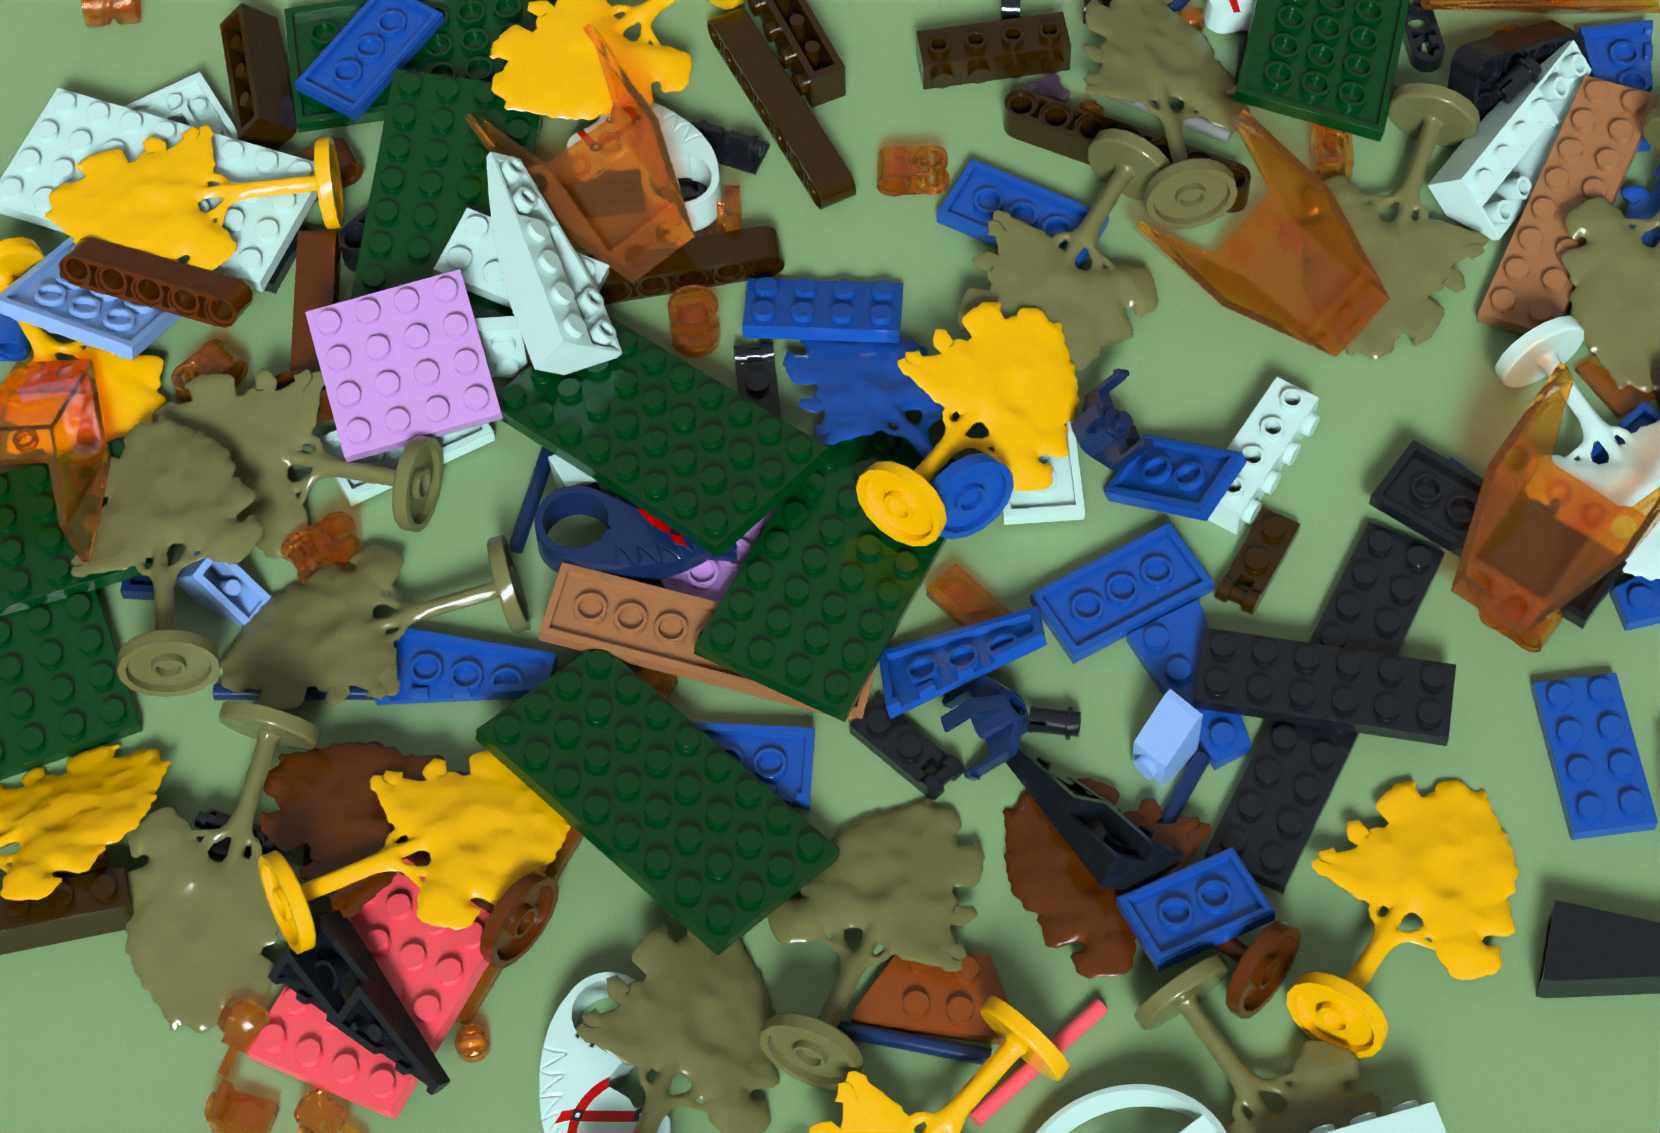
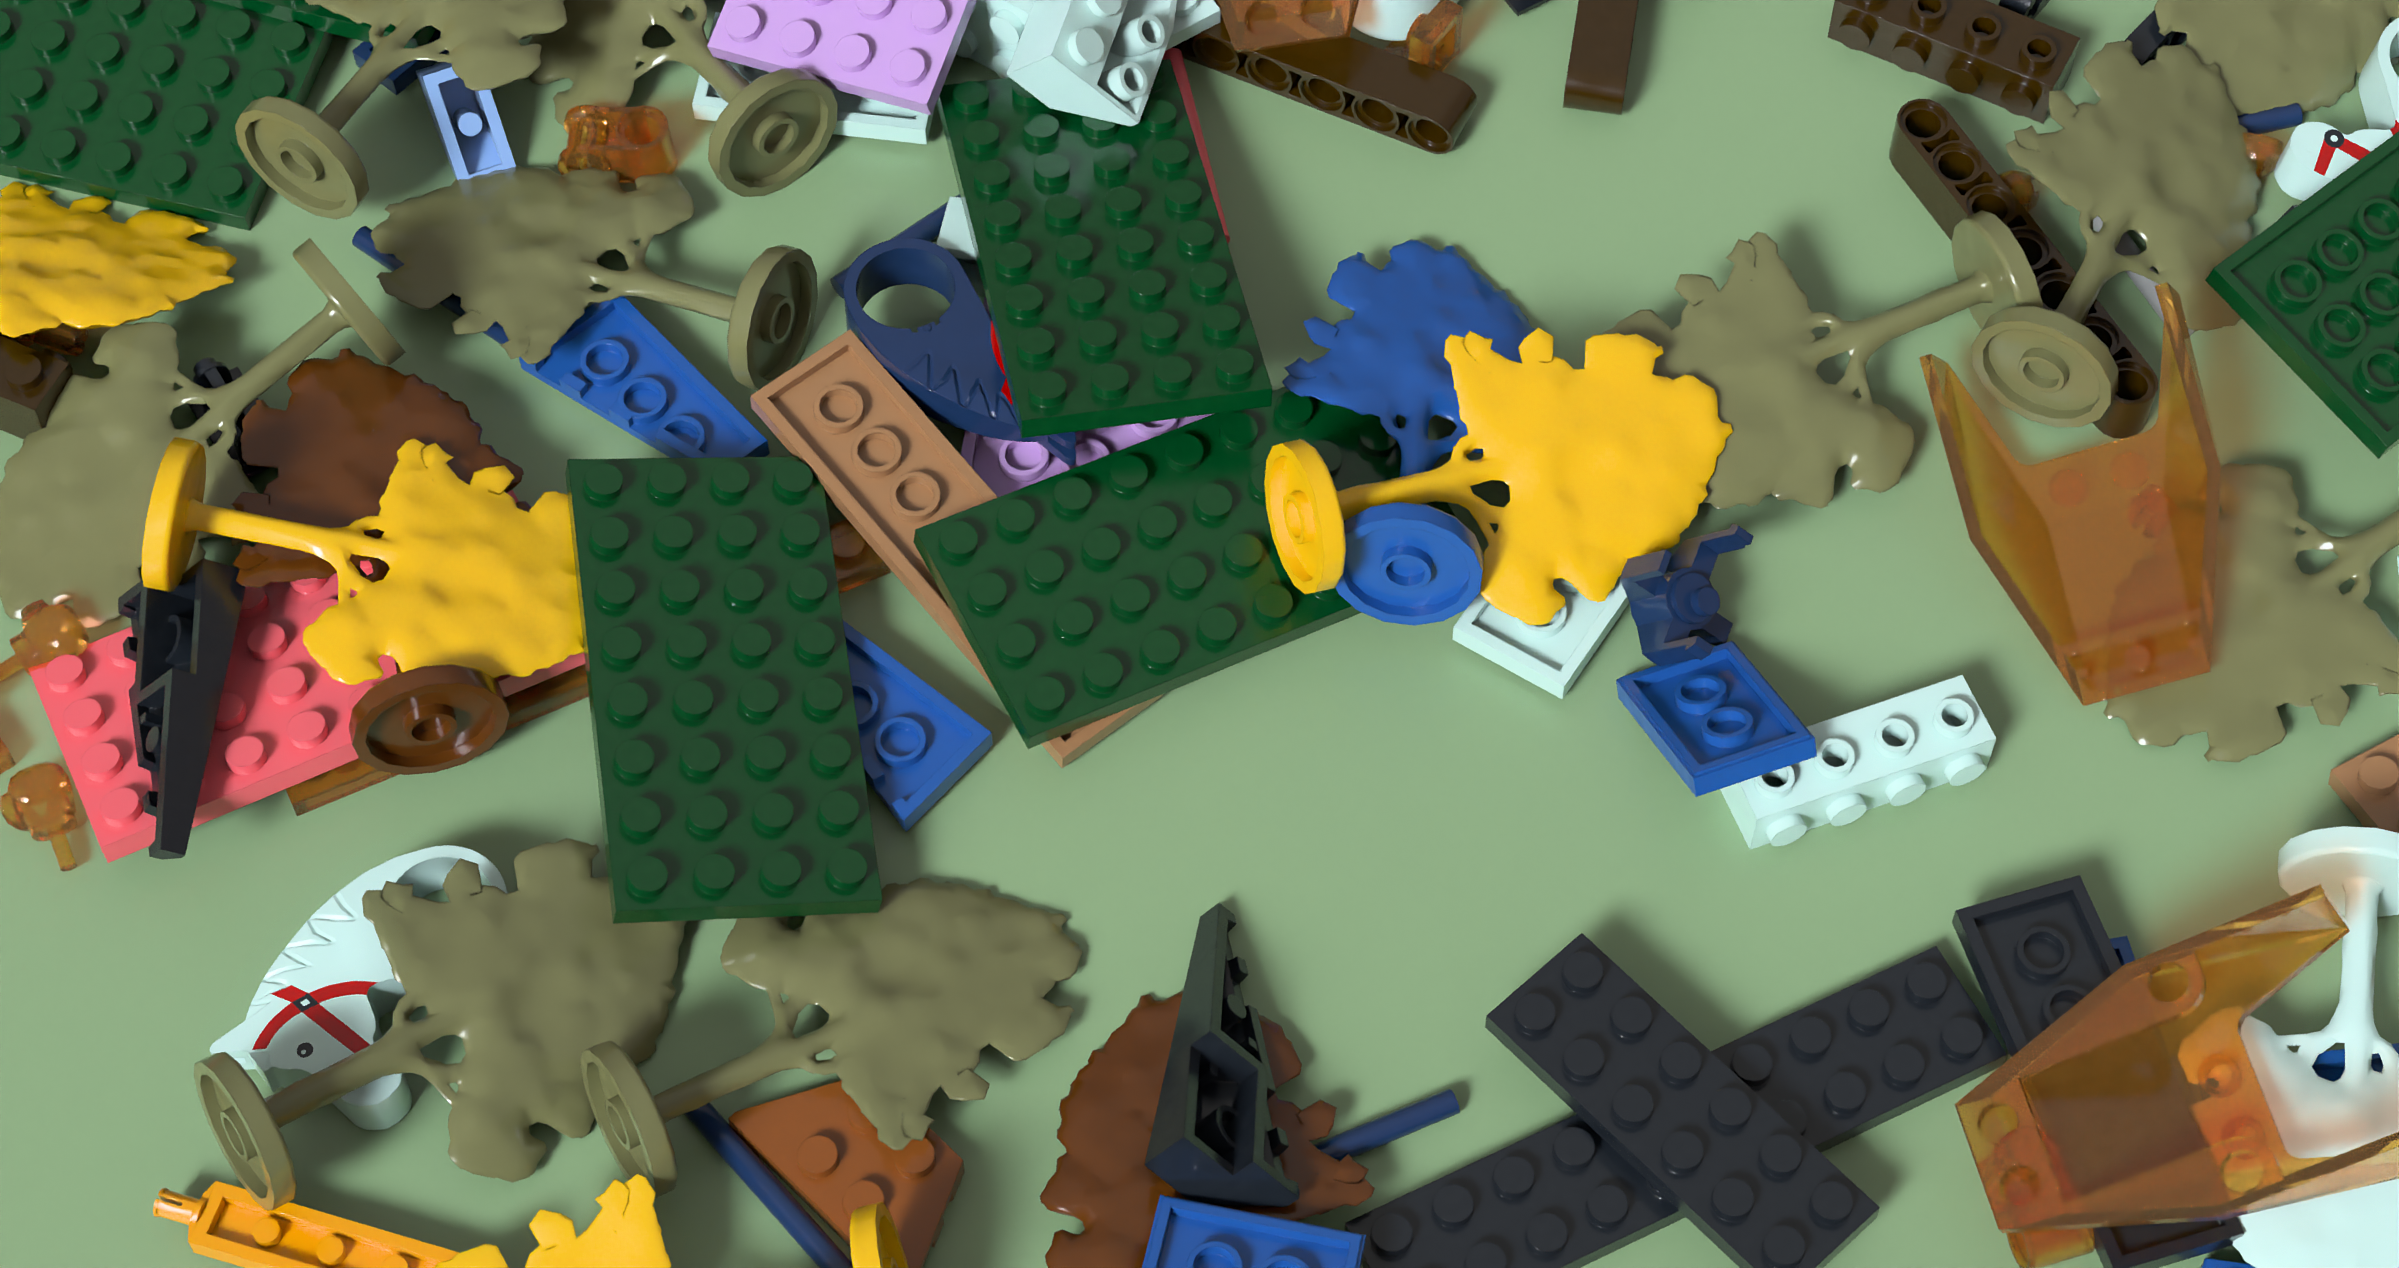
camera: 35 degrees right, 0 degrees up
(472, 1049) = (276, 847): clear orange hinge -> none
(694, 321) = (1276, 144): clear orange wheel -> none
(758, 384) = (1294, 278): black plate -> none
(823, 310) = (1452, 231): blue plate -> none
(906, 750) = (1086, 835): black plate -> none
(908, 170) = (1712, 119): clear orange piece -> none
(948, 660) = (1229, 759): blue wing -> none
(964, 598) = (1318, 710): clear orange plate -> none
(988, 189) = (1814, 244): blue plate -> none
(996, 715) = (1216, 867): dark blue piece -> none
(1050, 88) = (1996, 124): clear purple plate -> none
(1055, 721) = (1301, 929): black pin -> none
(1121, 592) = (1526, 822): blue plate -> none
(1167, 739) = (1408, 1045): light blue slope -> none
(1171, 656) = (1519, 935): blue wing -> none
(1258, 560) = (1744, 901): dark brown plate -> none
(1330, 152) = (2287, 447): clear orange brick -> none

